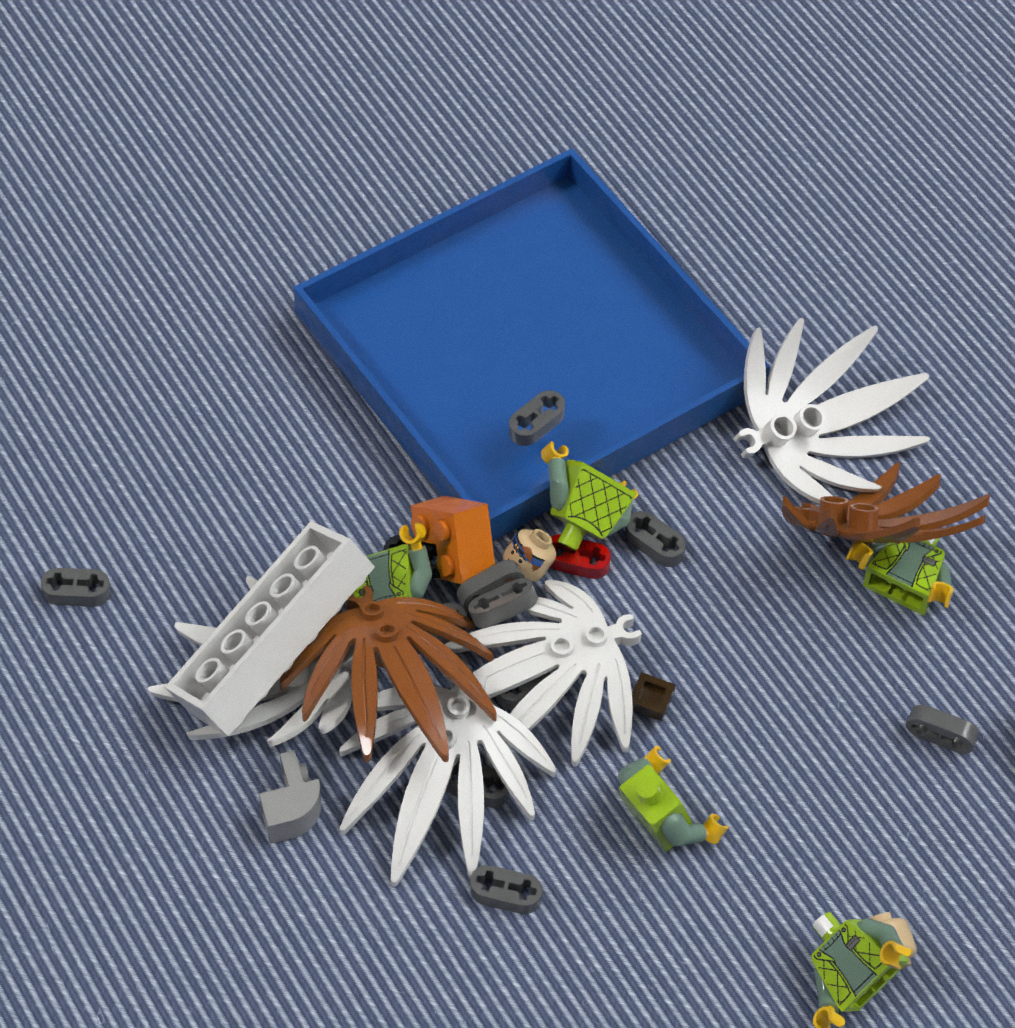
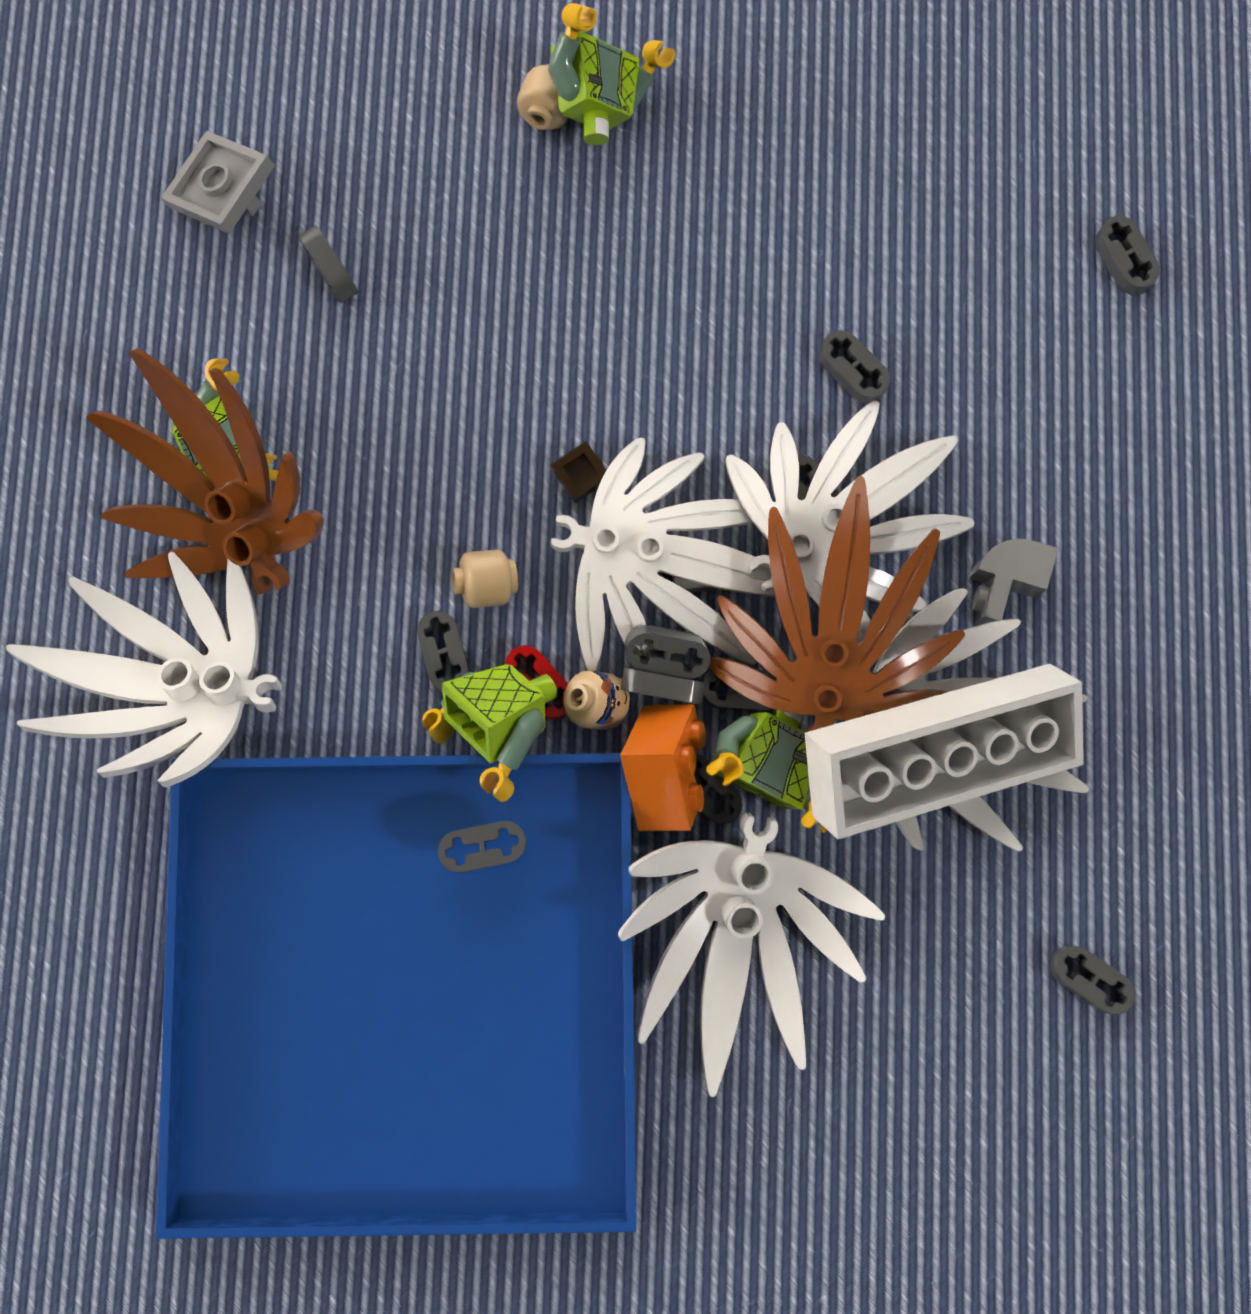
camera: 145 degrees left, 25 degrees up
(349, 506) = (742, 897): none -> white plant
(660, 808) = (665, 348): torso -> none
(662, 590) = (485, 578): none -> tan head

